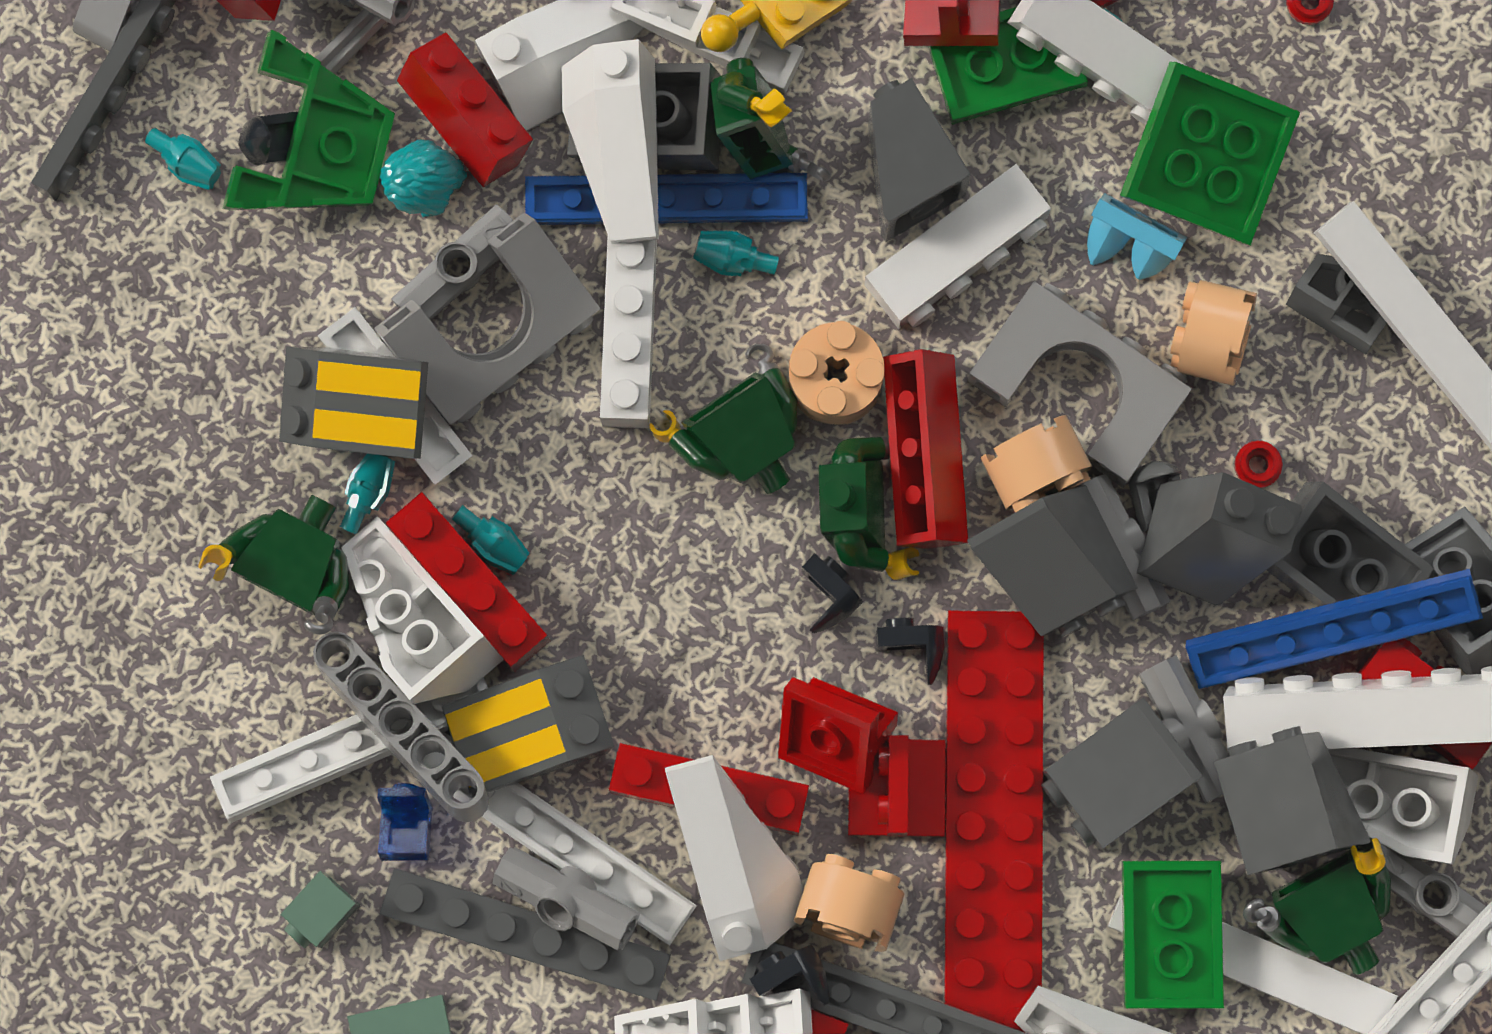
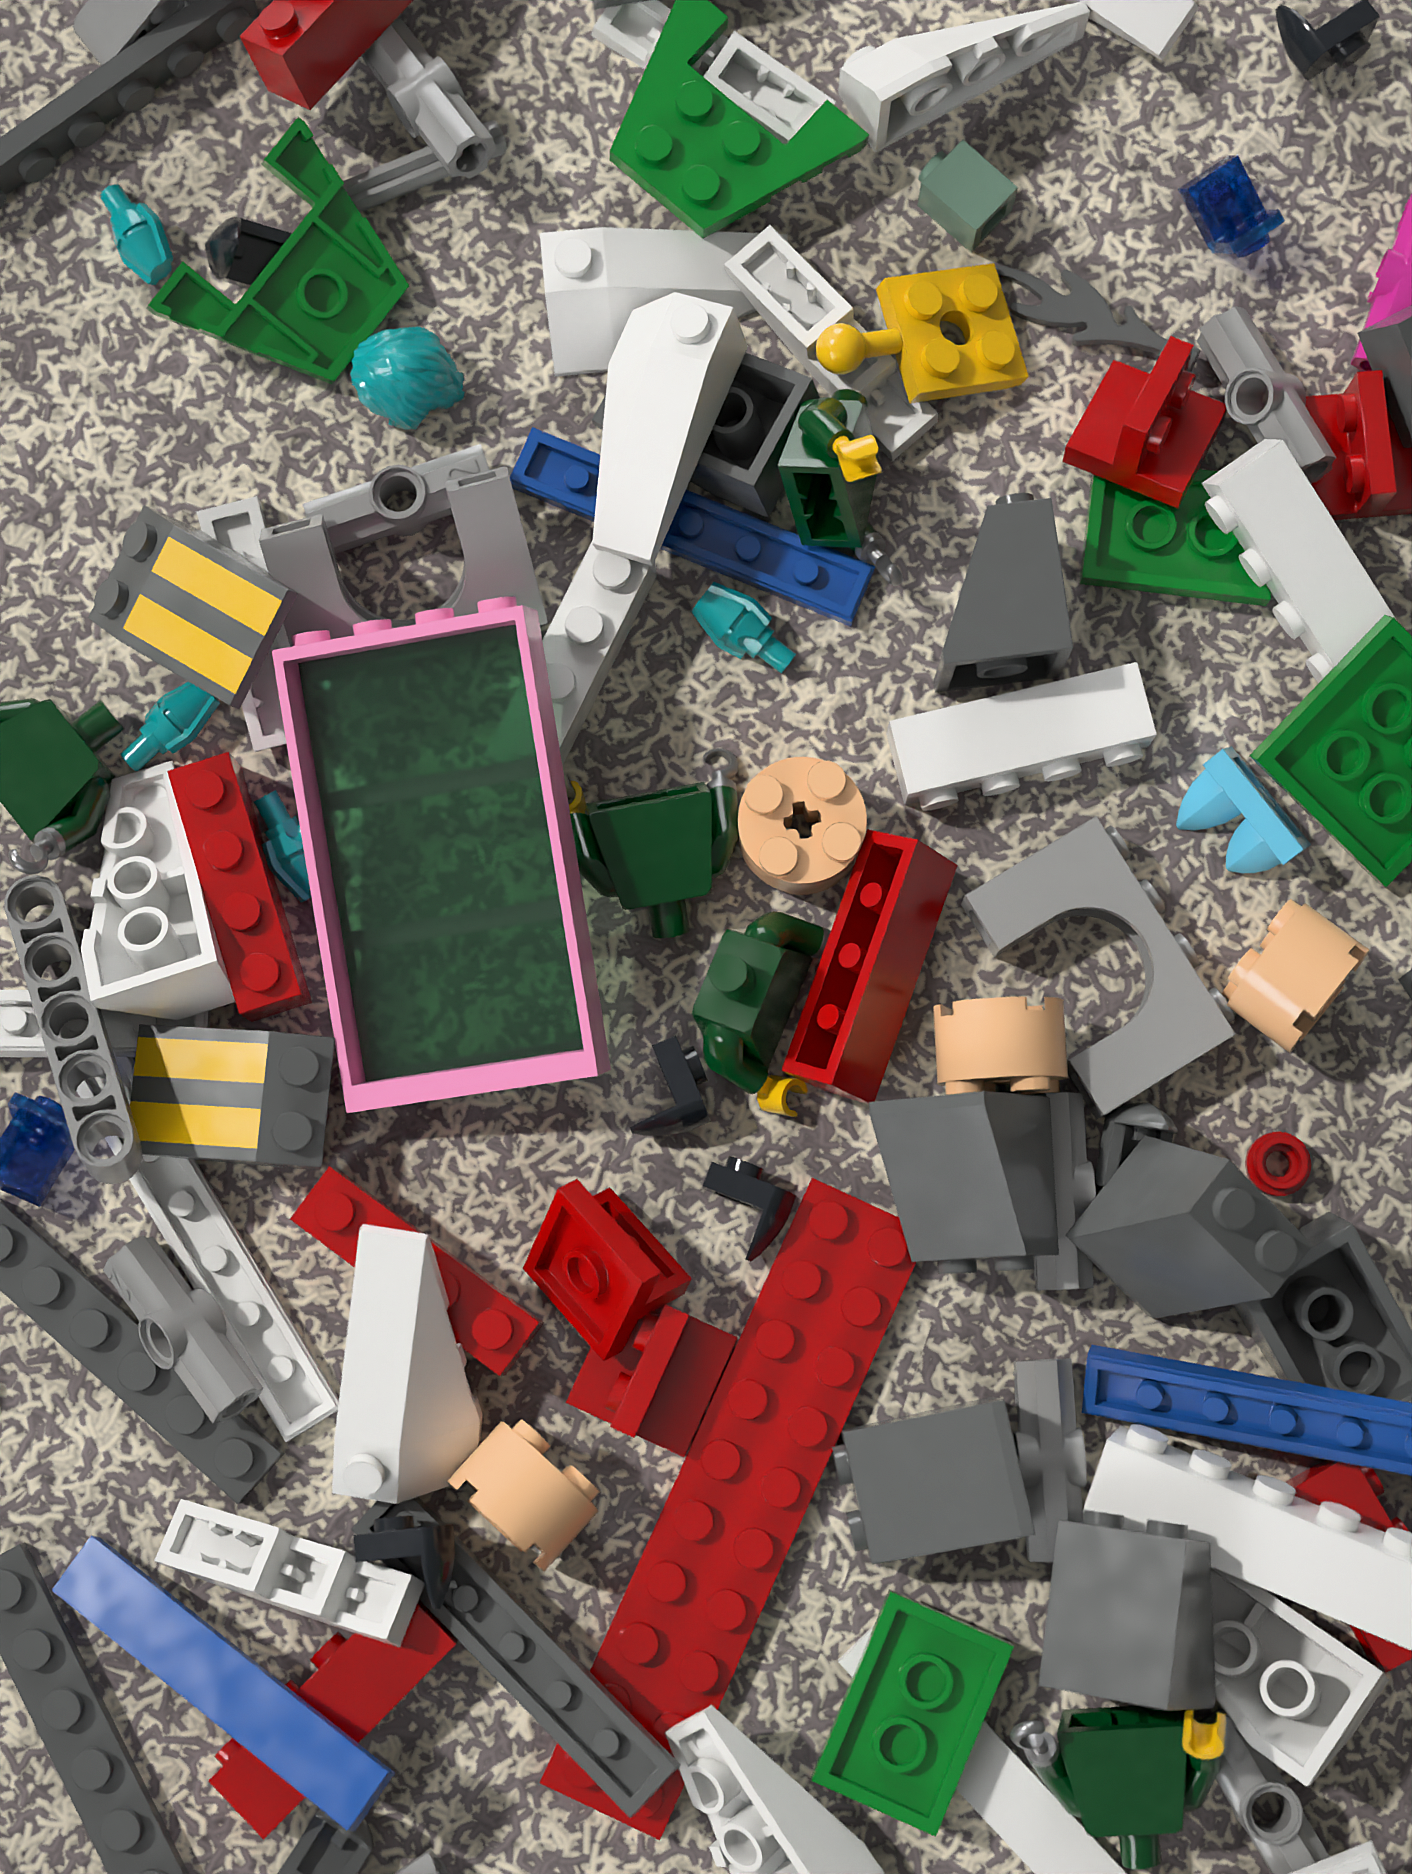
camera: 25 degrees right, 0 degrees up
(464, 109) = (492, 313): red brick -> none
(602, 500) = (441, 856): none -> clear green window

